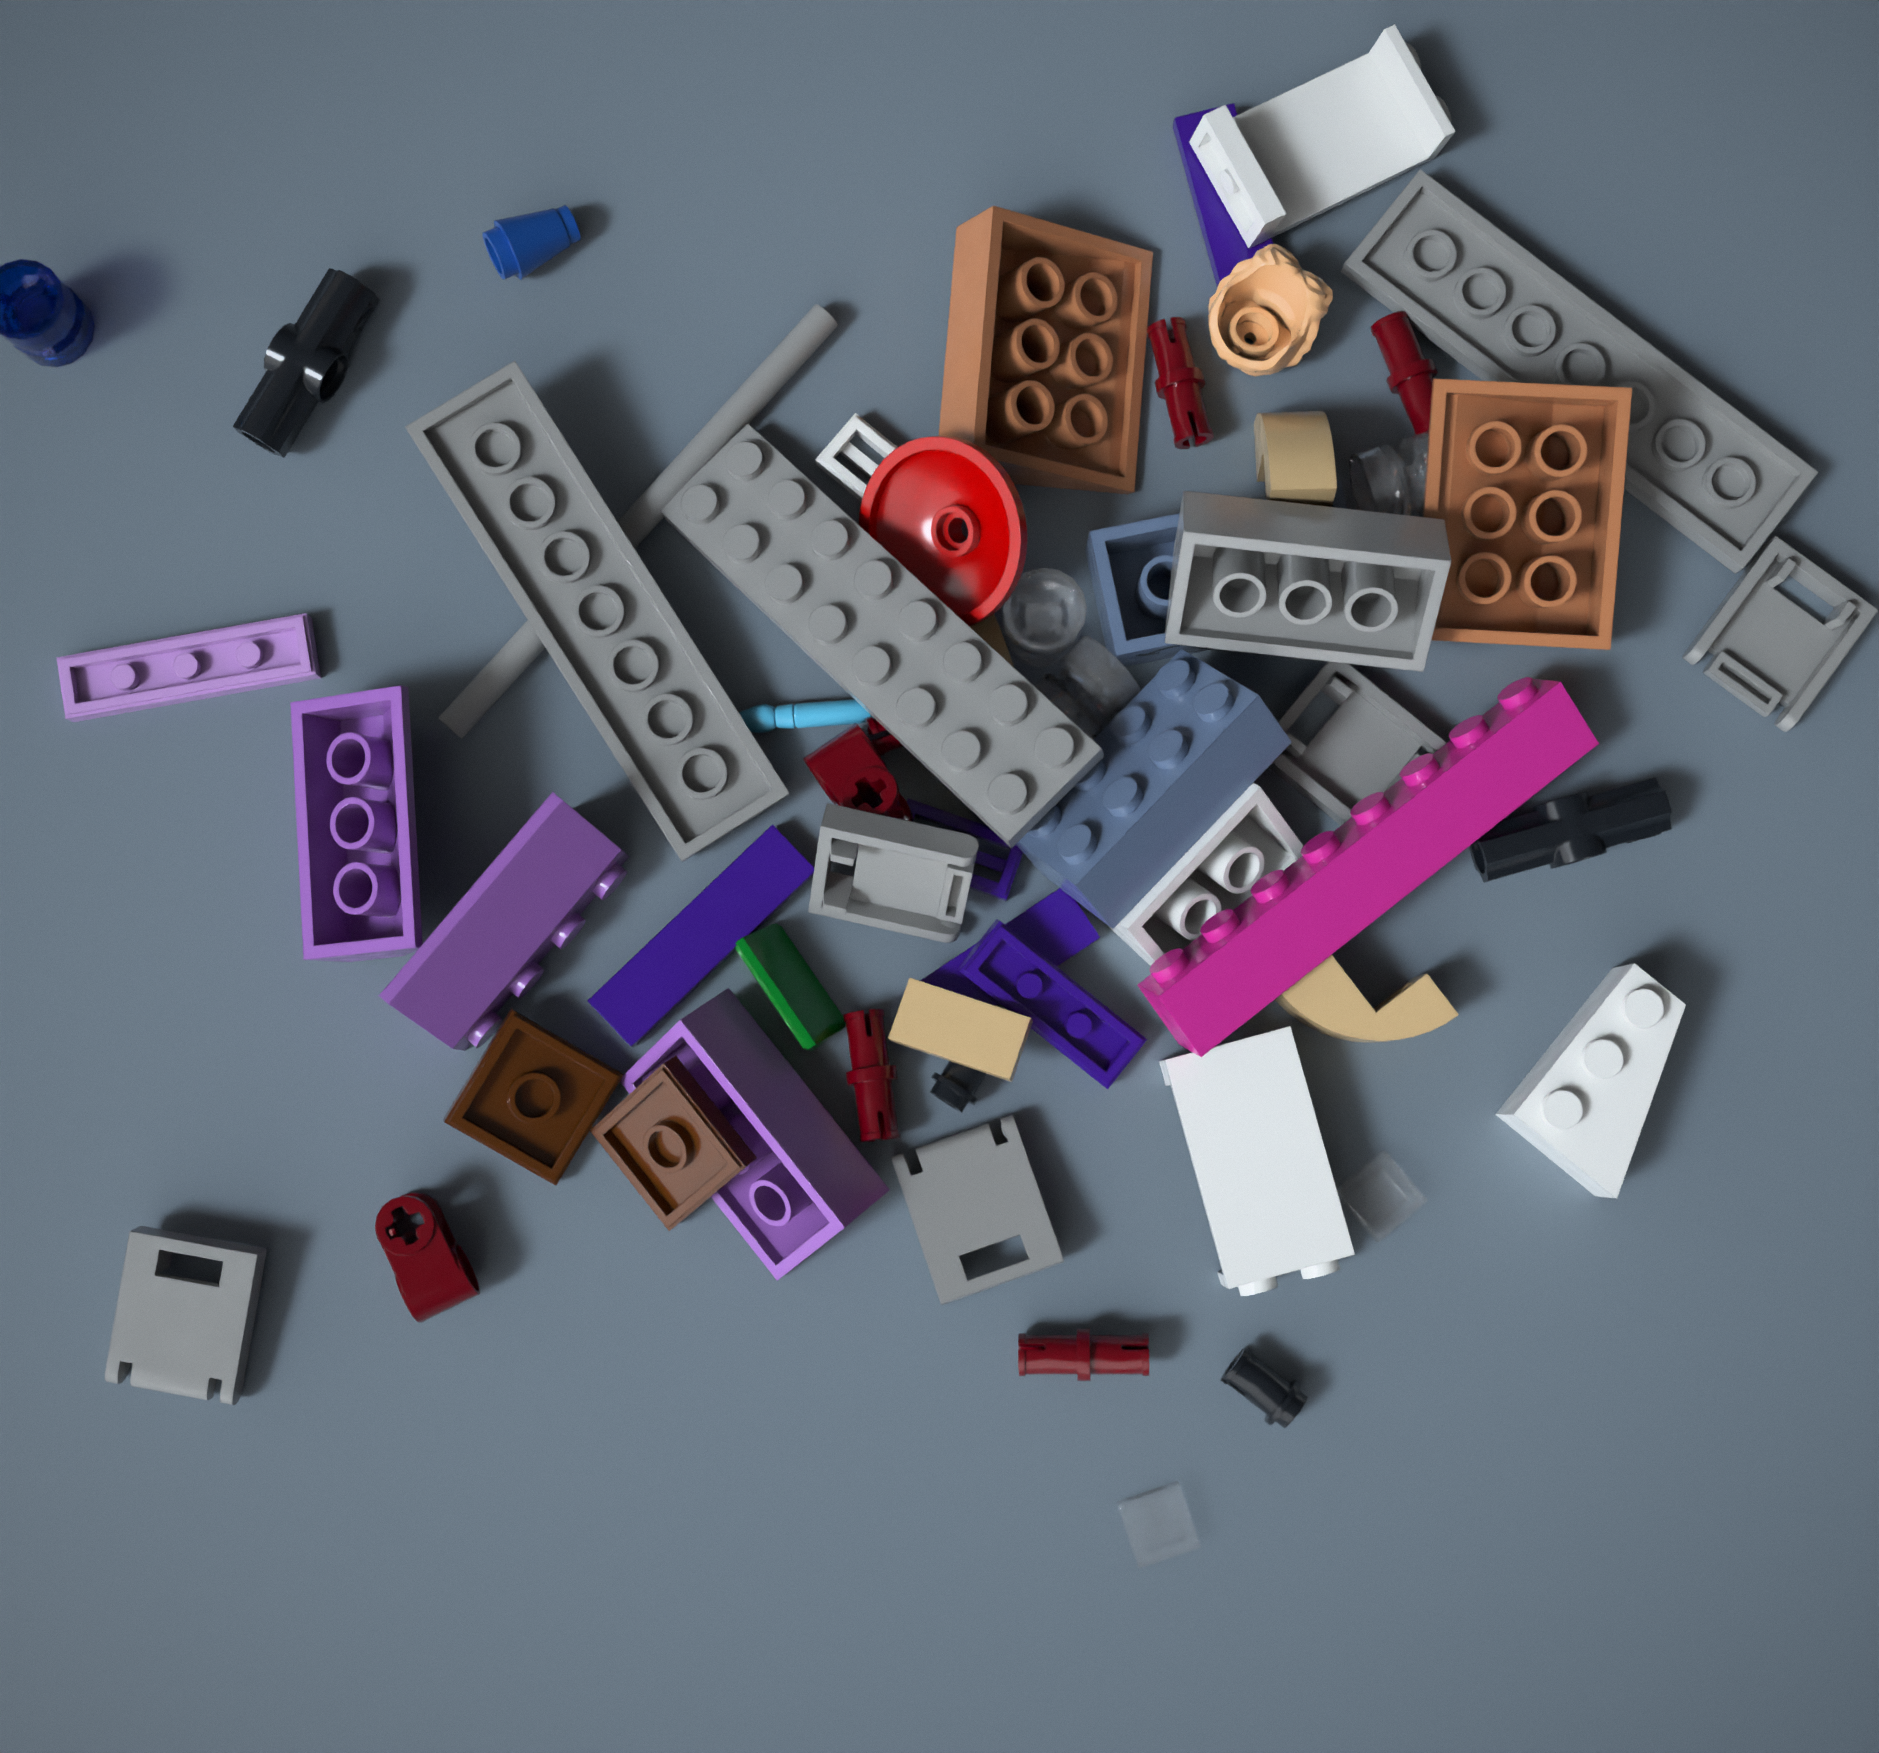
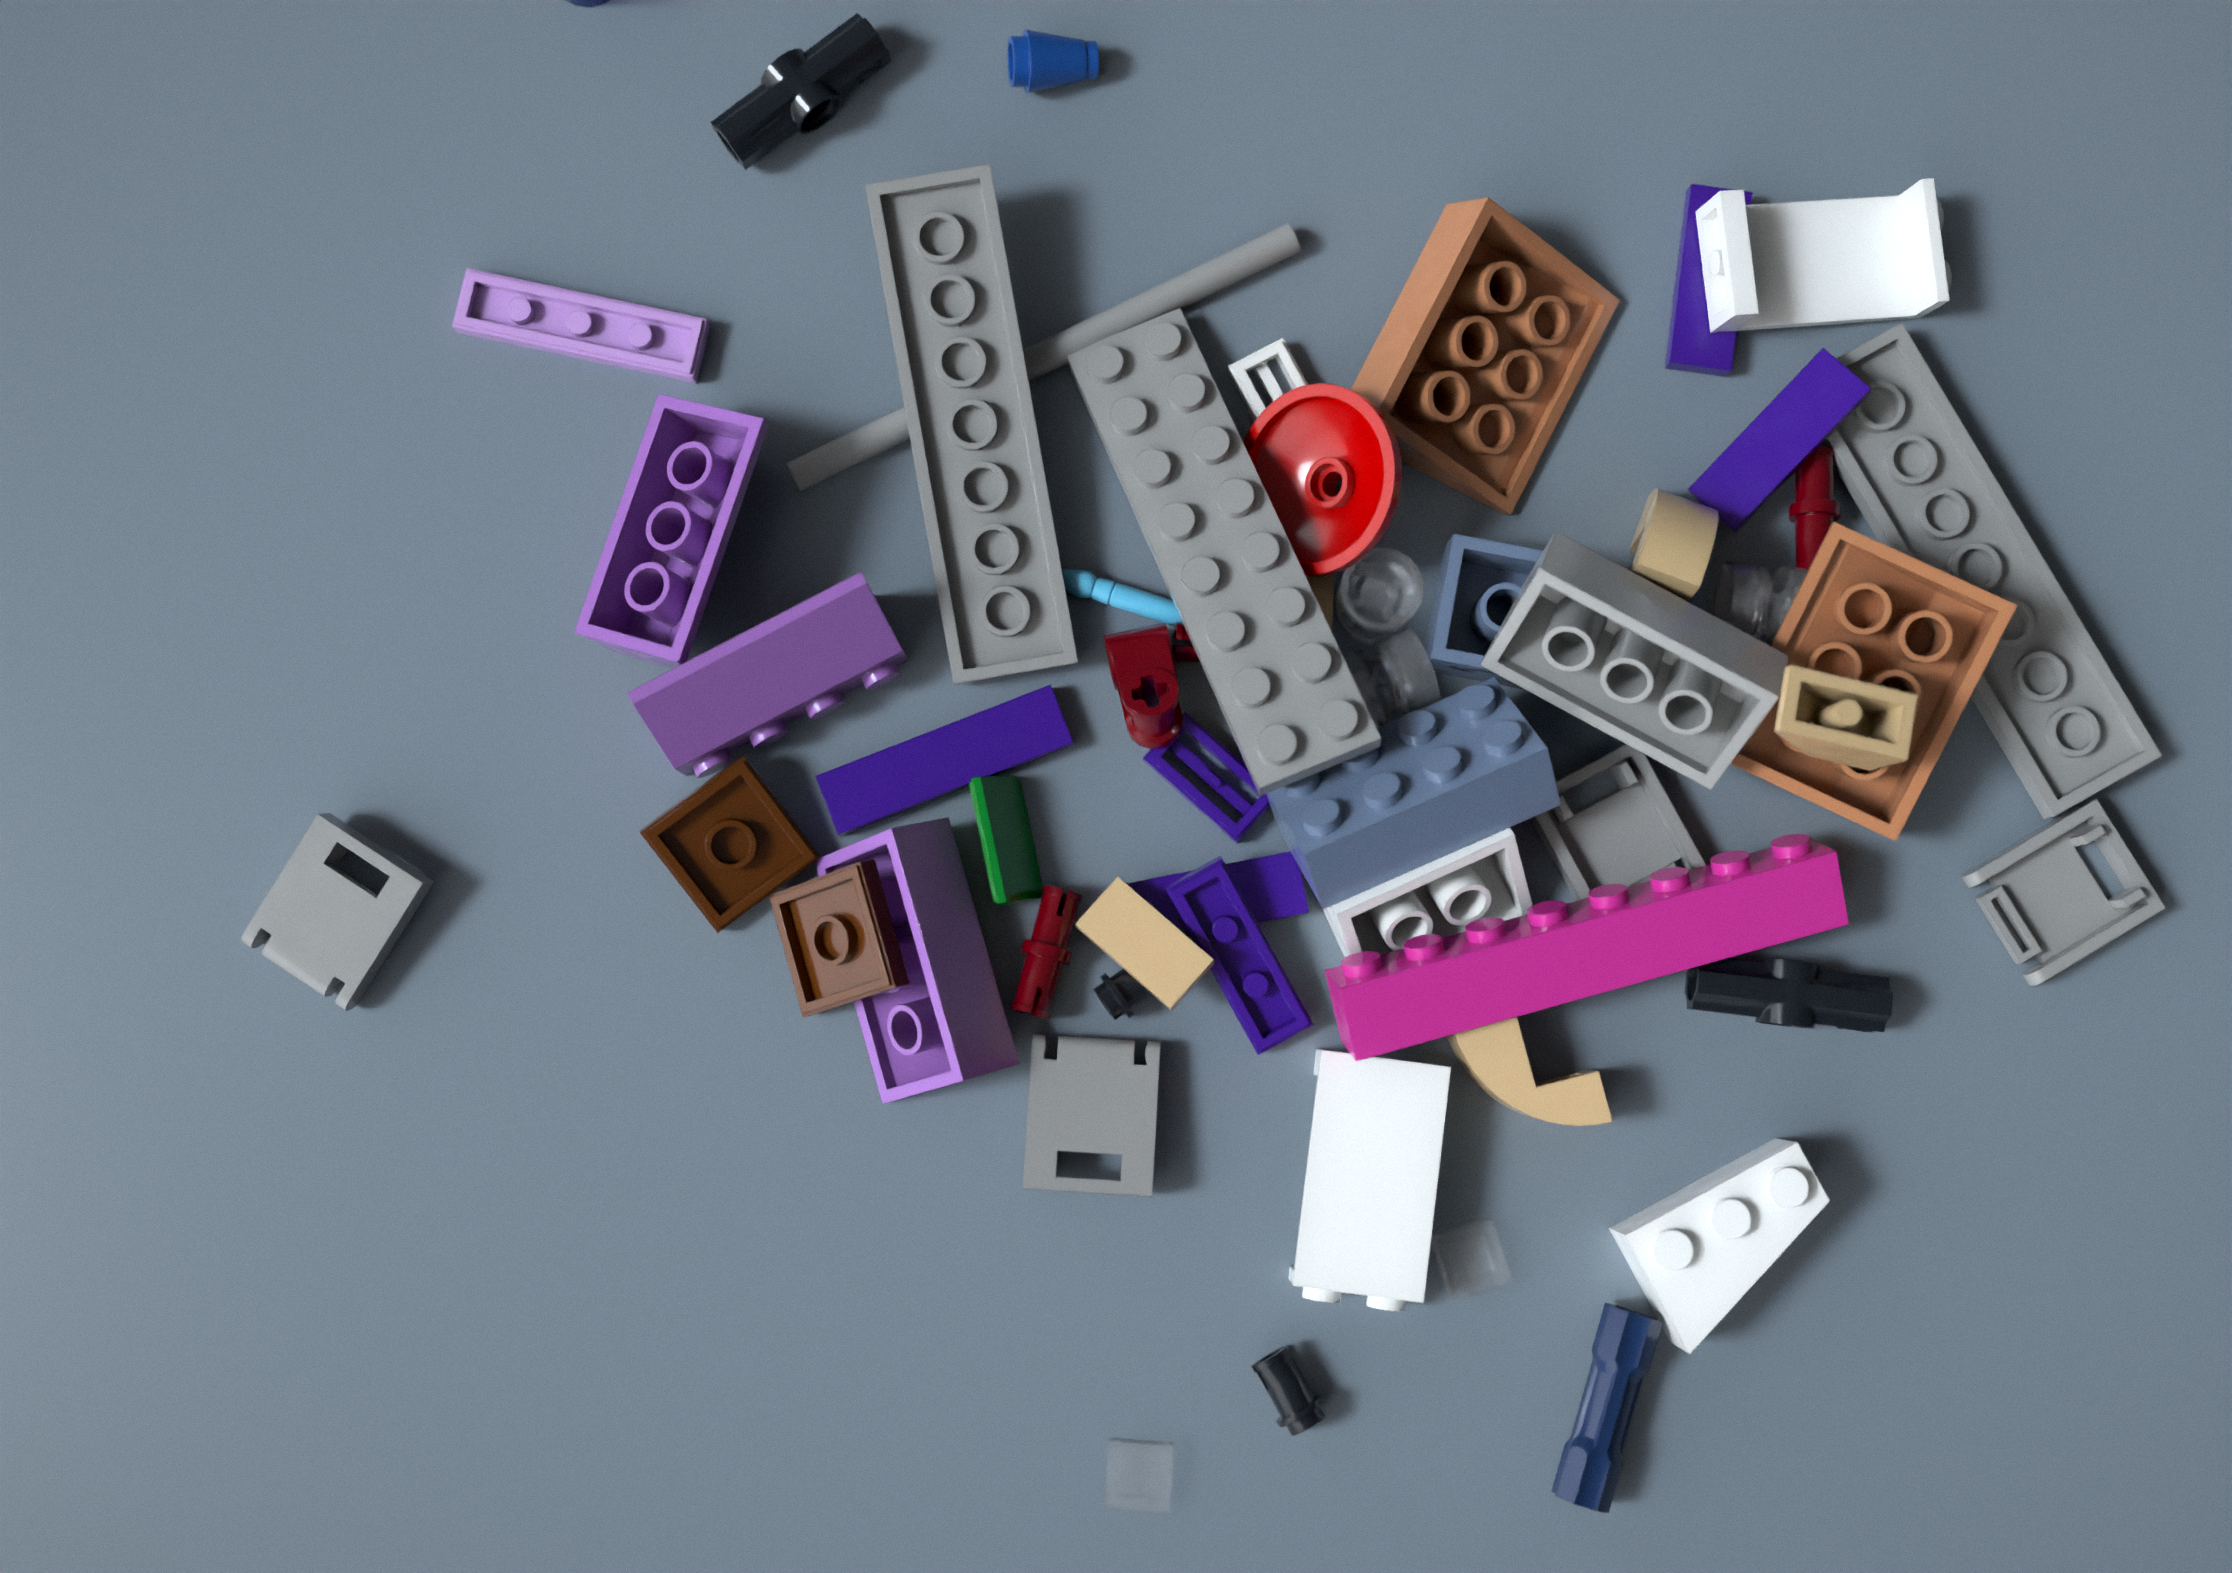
camera: 25 degrees right, 0 degrees up
(431, 1270) = (572, 963): dark red piece -> none
(904, 876) = (1152, 780): light grey container -> none
(1083, 1354) = (1134, 1289): dark red pin -> none
(1180, 383) = (1594, 431): dark red pin -> none
(1273, 306) = (1709, 392): light nougat hair -> none
(1355, 322) = (1780, 440): none -> dark purple tile
(1519, 556) = (1845, 719): none -> tan slope
(1565, 1327) = (1593, 1453): none -> dark blue axle

